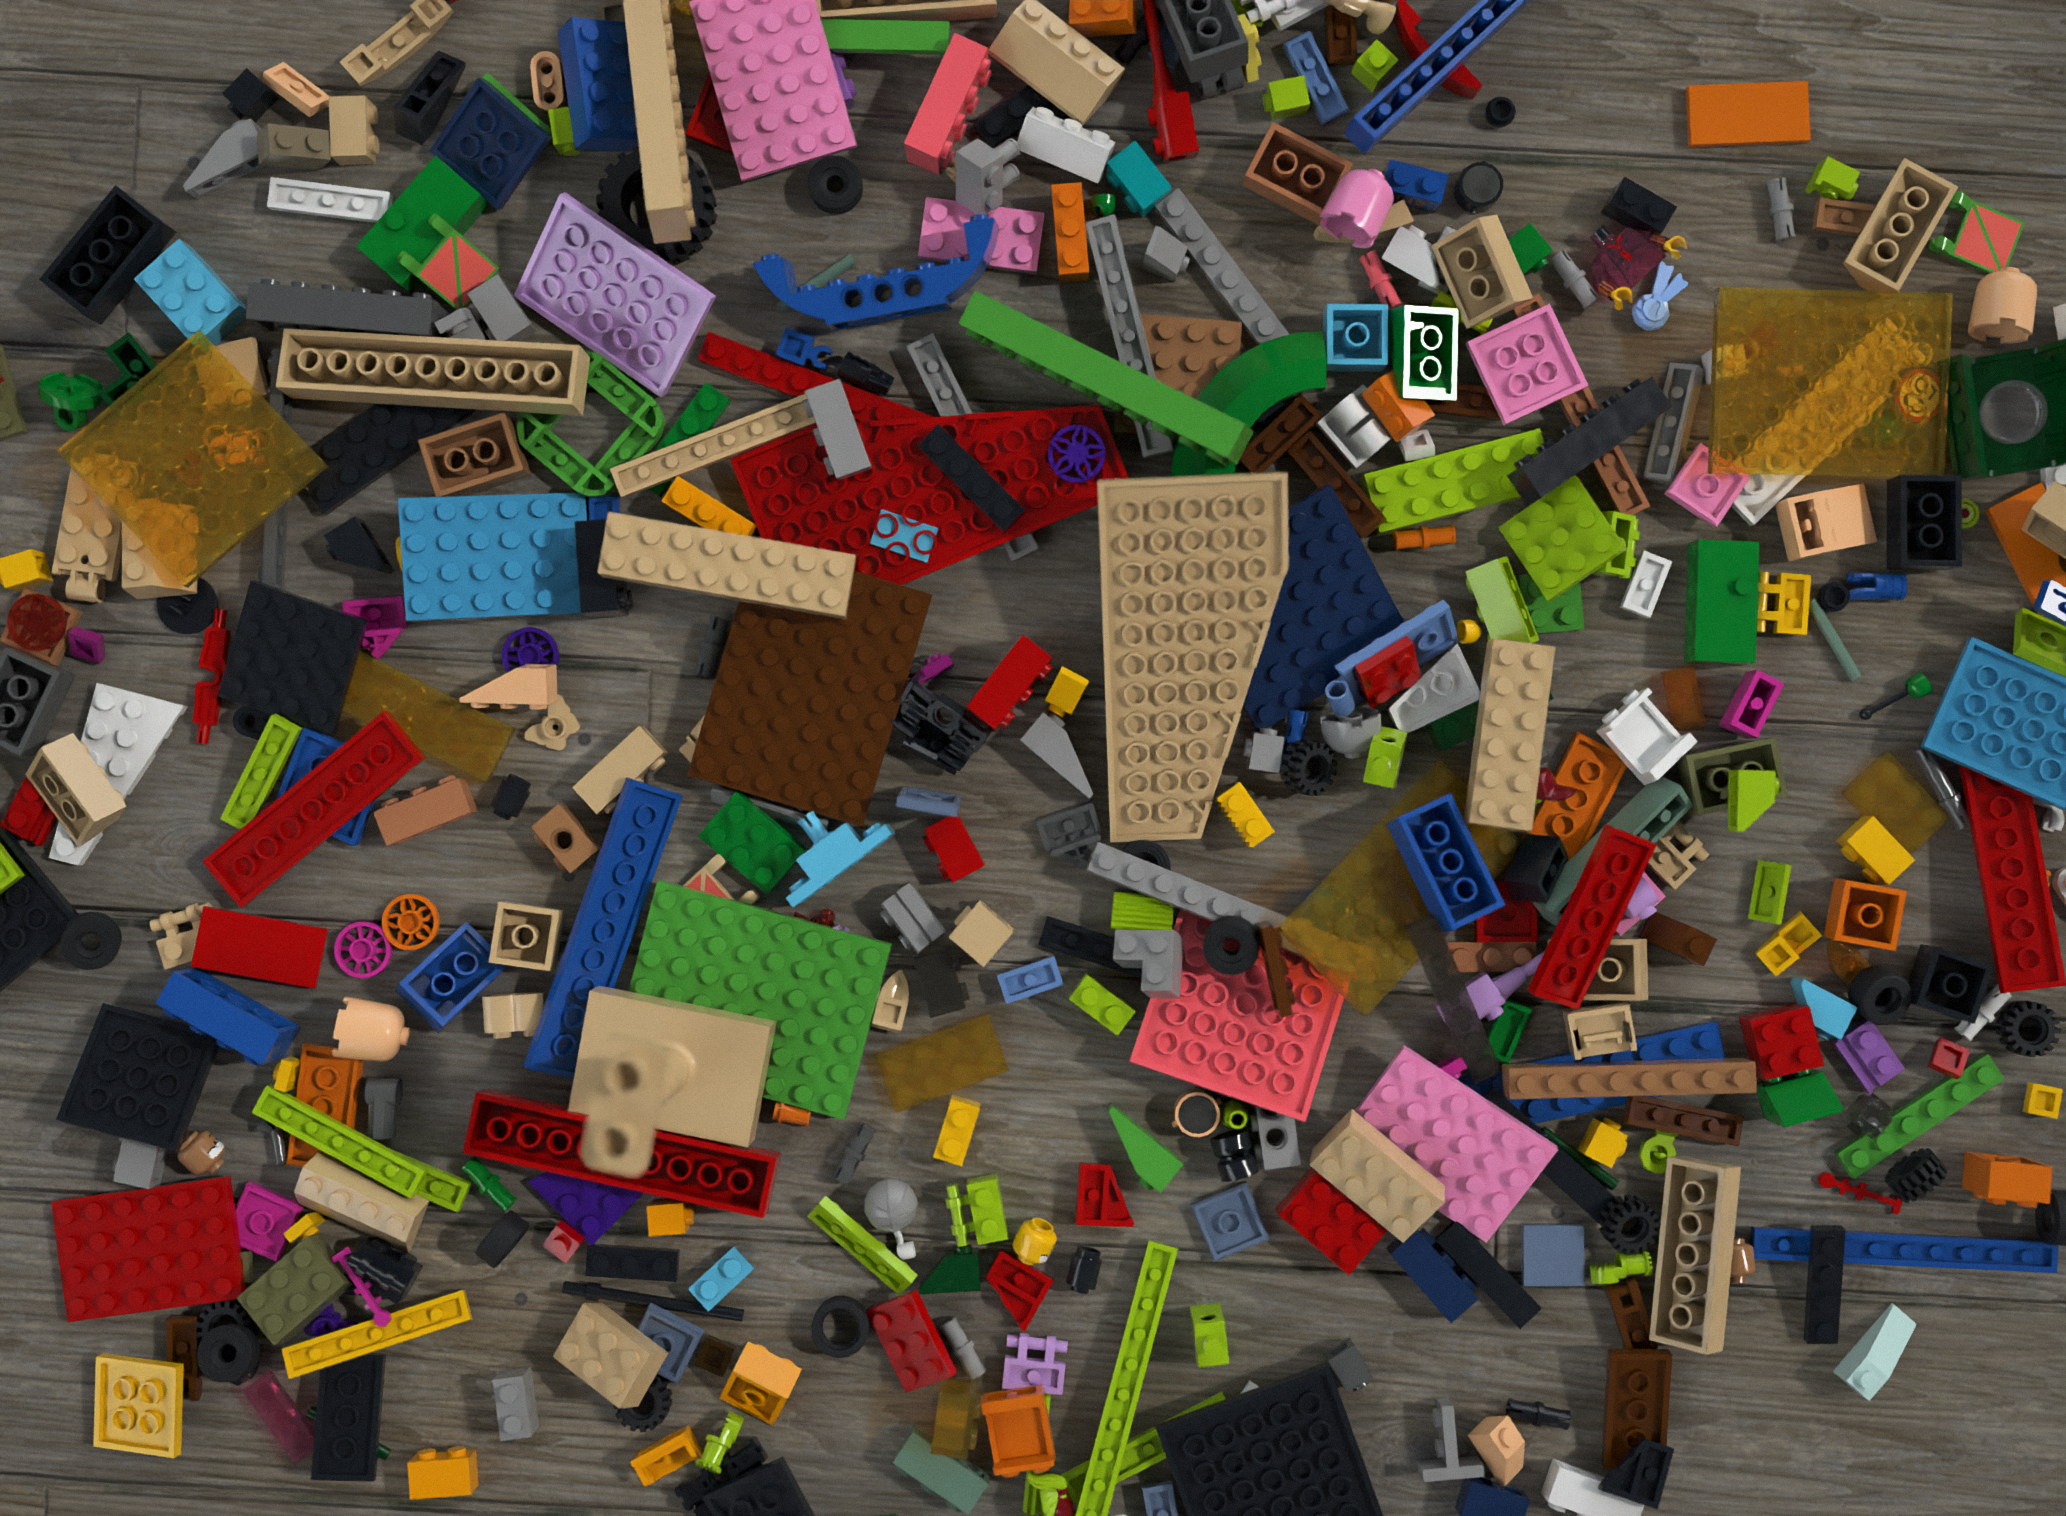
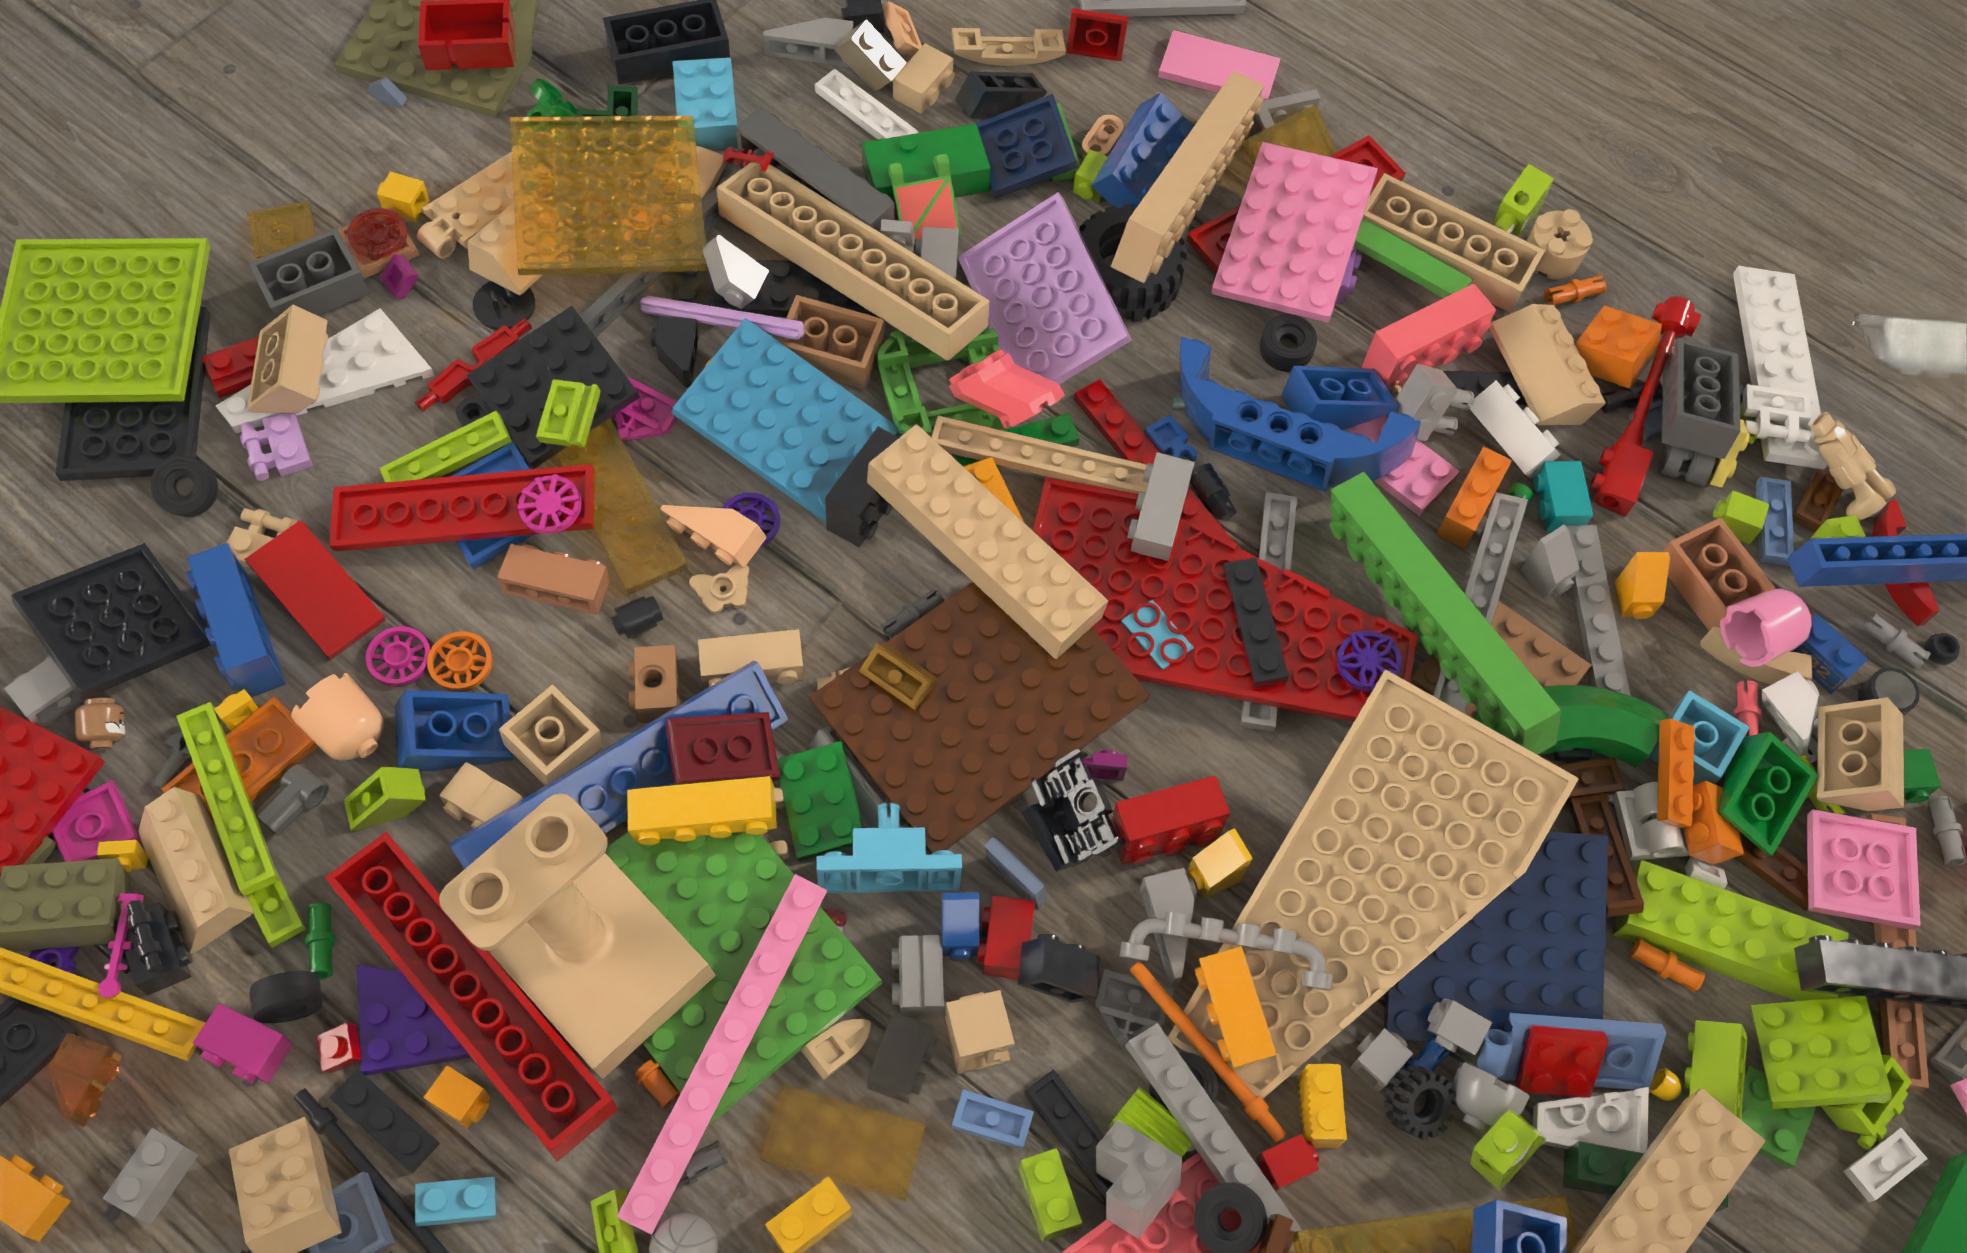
camera: 30 degrees right, 25 degrees down
(129, 846) = (286, 442): none -> lavender plate
(256, 335) = (731, 155): none -> red piece
(329, 681) = (568, 413): none -> lime plate
(353, 457) = (733, 272): none -> slope
(373, 501) = (721, 317): none -> lavender axle
(380, 767) = (549, 504): none -> dark pink wheel
(412, 1378) = (80, 1076): none -> clear orange slope
(447, 1059) = (384, 797): none -> lime slope
(499, 1286) = (242, 1043): none -> dark pink brick
(647, 413) = (1004, 388): none -> coral brick
(656, 860) = (721, 748): none -> dark red tile
(679, 917) = (701, 810): none -> yellow brick
(740, 714) = (898, 674): none -> pearl gold slope
(822, 1067) = (721, 1056): none -> bright pink plate
(909, 216) = (1338, 395): none -> blue slope
(917, 867) = (960, 925): none -> blue slope
(1005, 850) = (1059, 969): none -> black brick
(1120, 742) = (1246, 936): none -> light grey bar
(1144, 795) = (1235, 1007): none -> light orange brick
(1199, 848) = (1255, 1106): none -> orange bar
(1244, 226) = (1643, 584): none -> light orange slope
(1245, 871) = (1288, 1162): none -> red brick
(1304, 697) = (1457, 1026): none -> light grey brick
(1353, 388) = (1675, 773): none -> orange plate
(1461, 130) = (1895, 640): none -> light grey pin

